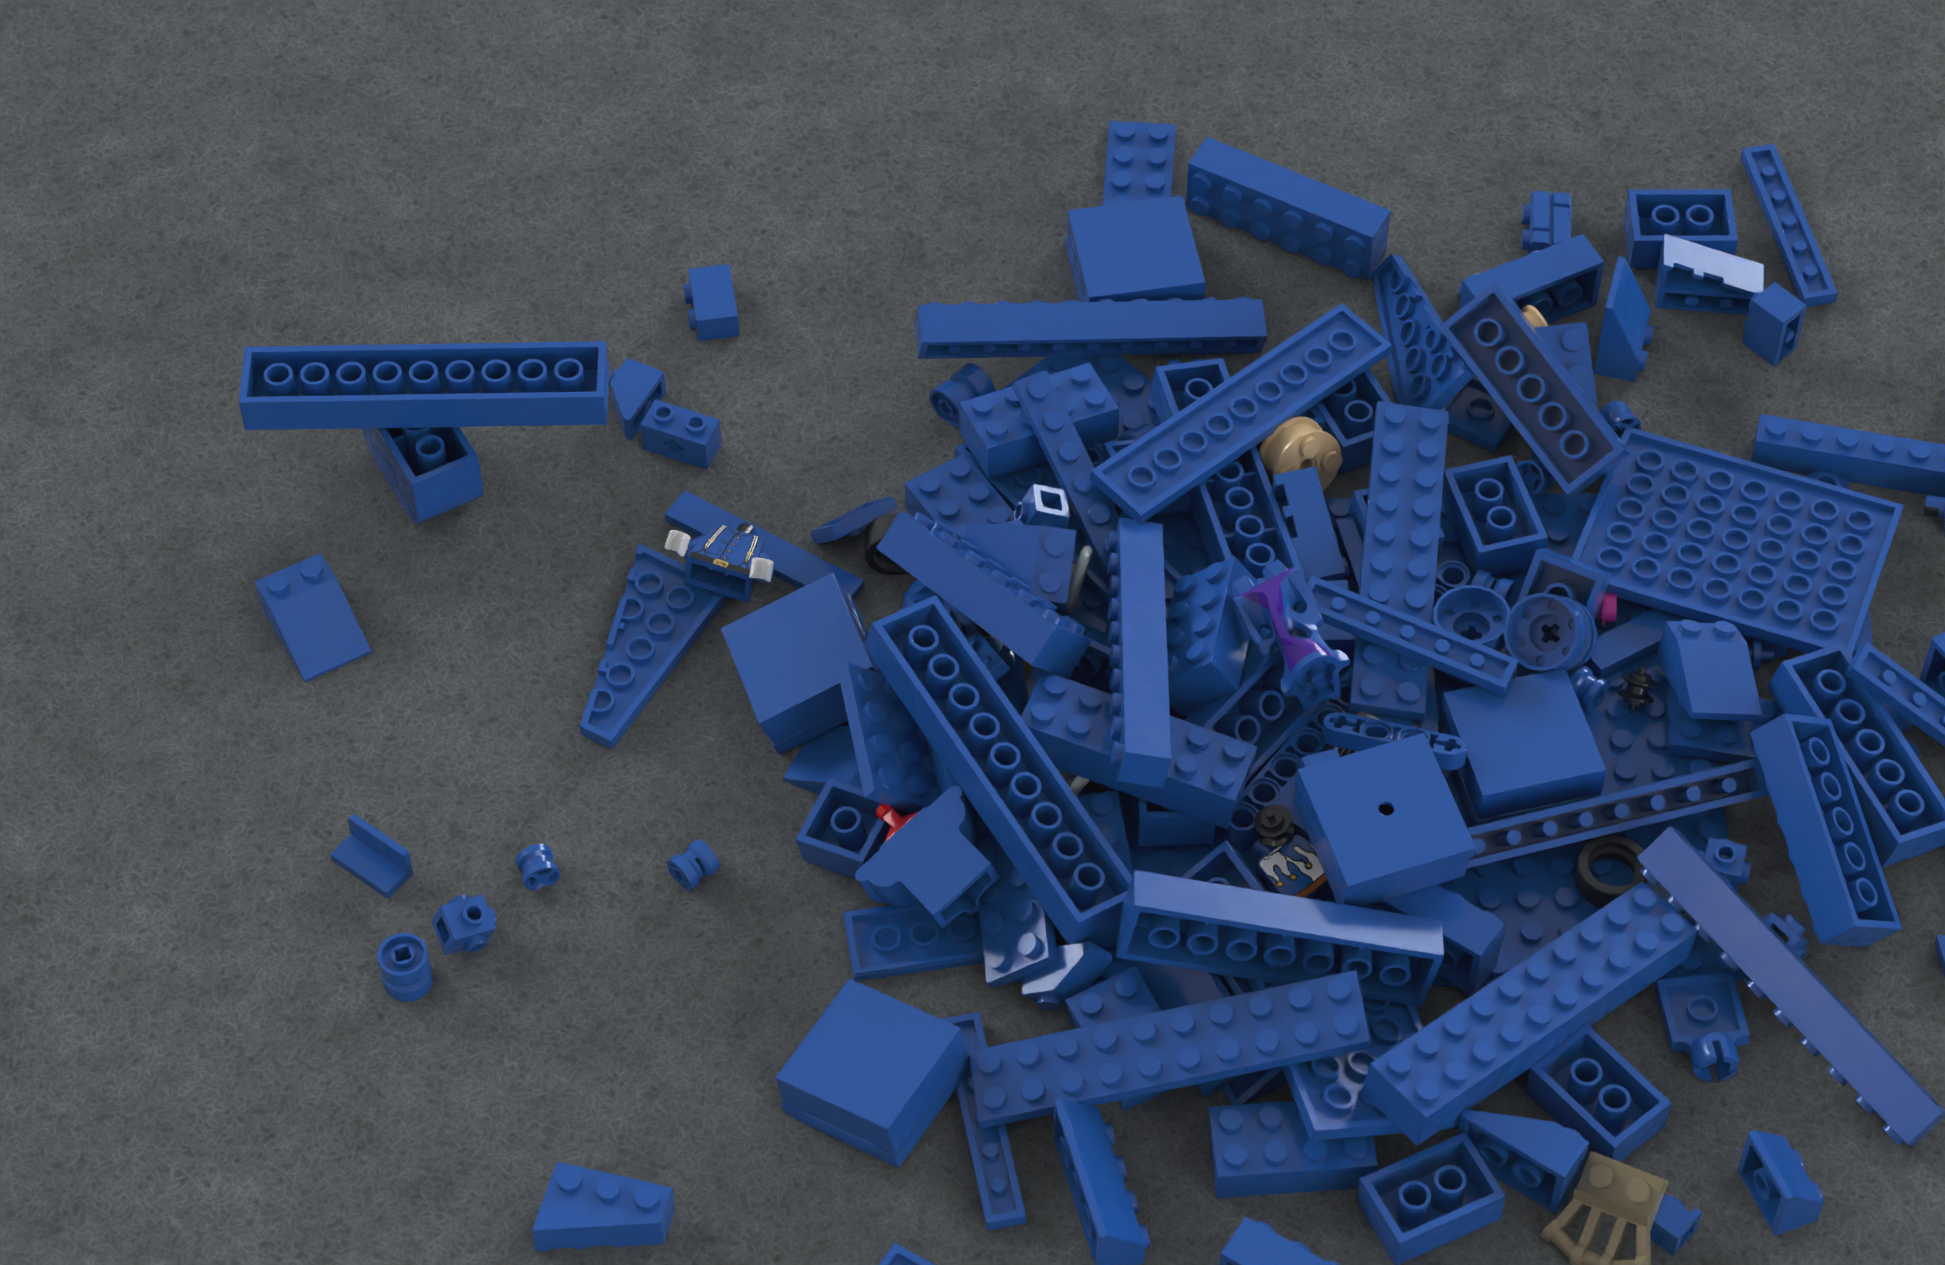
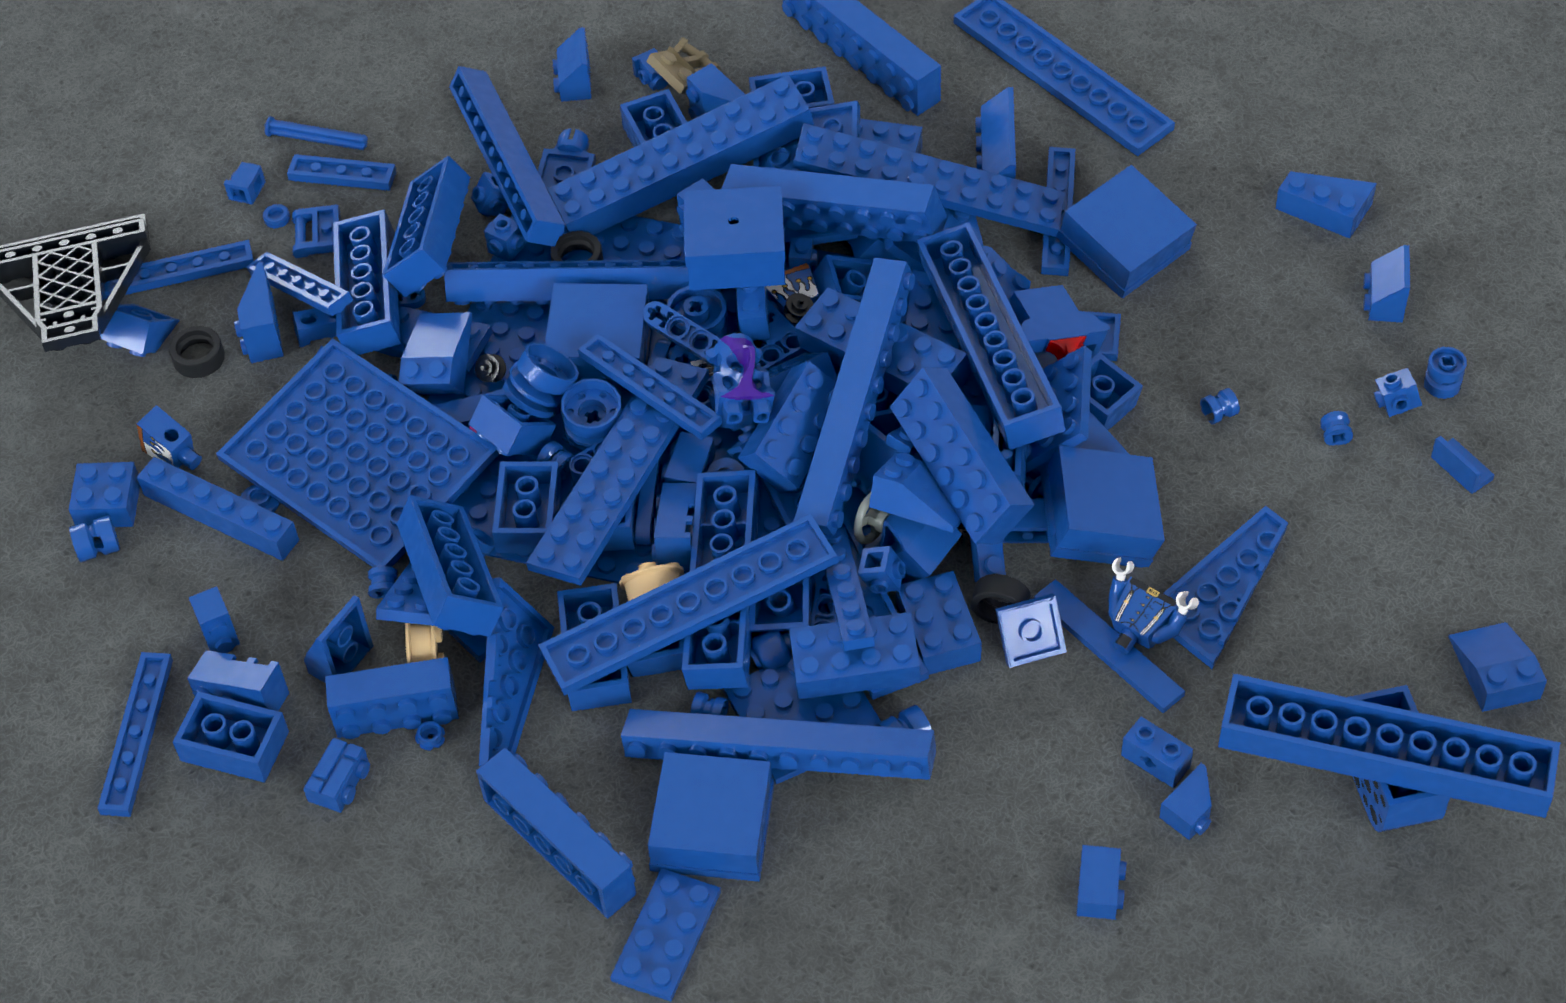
camera: 160 degrees left, 0 degrees up
(496, 1078) = (1388, 286): none -> blue slope

